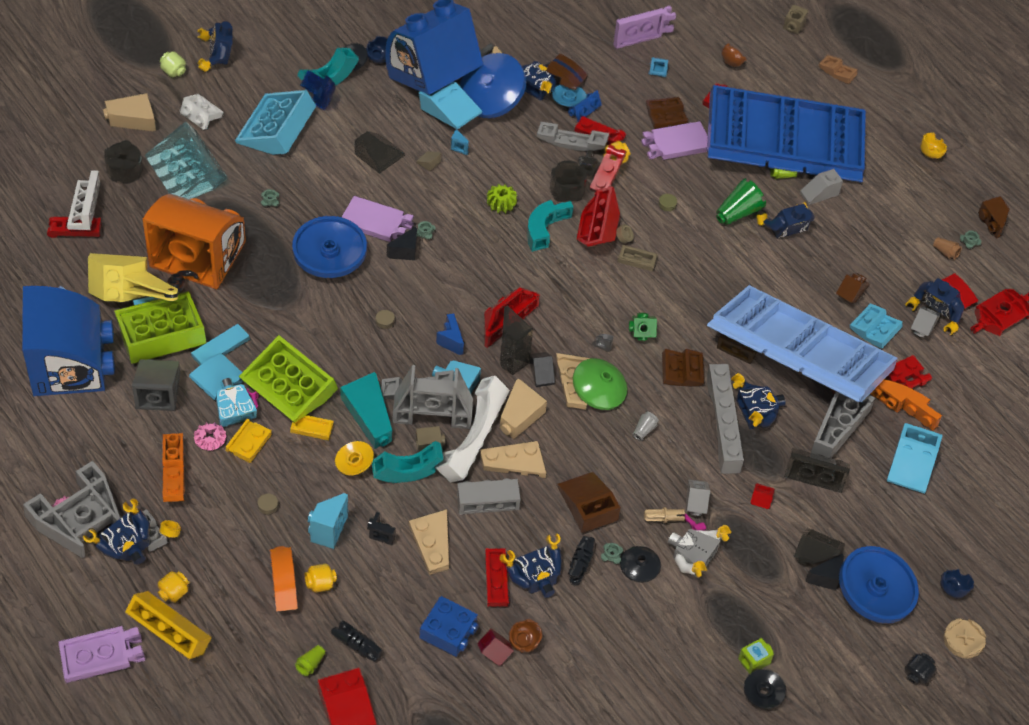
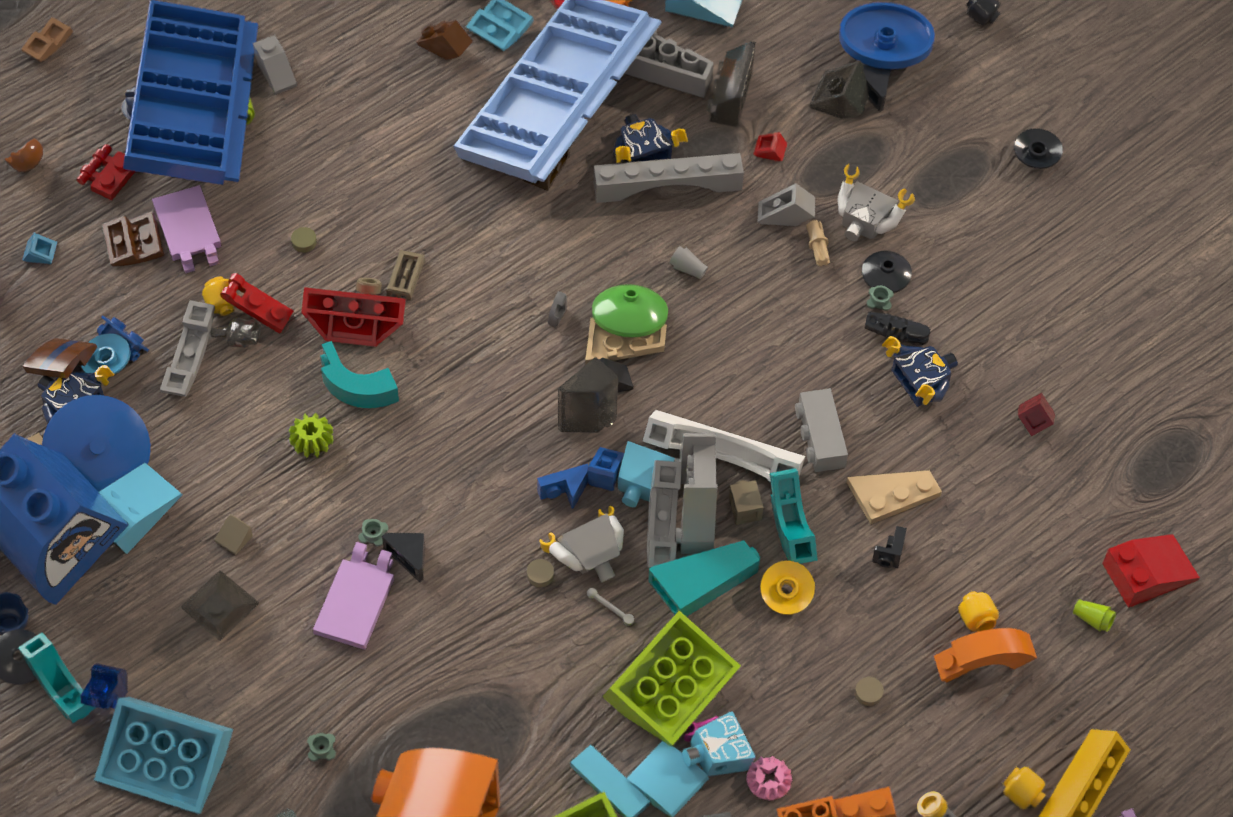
camera: 90 degrees left, 5 degrees up
(248, 440) = (770, 727): yellow plate -> none
(313, 427) = (736, 644): yellow tile -> none
(328, 520) = (897, 602): medium azure slope -> none
(329, 246) = (423, 648): blue dish -> none
(344, 367) = (628, 619): none -> light grey hinge
(357, 641) = (1057, 564): black hinge -> none
(400, 344) = (589, 545): none -> light grey torso
(449, 626) = (1022, 461): blue brick -> none
(459, 143) = (203, 494): dark azure slope -> none
(462, 353) = (604, 468): none -> blue slope
(496, 578) = (938, 417): red plate -> none
(515, 458) = (755, 404): tan wing -> none
(520, 301) = (527, 422): red wedge -> none
(521, 409) = (682, 397): tan slope -> none
(525, 635) = (1018, 380): dark orange hair -> none
(568, 181) = (280, 351): clear smoke brick -> none
(586, 126) = (169, 324): red plate -> none
(590, 501) = (813, 318): reddish brown slope -> none
(649, 328) = (533, 260): green brick -> none
(683, 368) = (588, 224): reddish brown slope -> none
(700, 526) = (830, 211): dark pink hand -> none
(741, 202) = (311, 150): green cone -> none
(756, 655) = (997, 155): lime brick -> none
(788, 221) = (341, 96): dark blue torso -> none

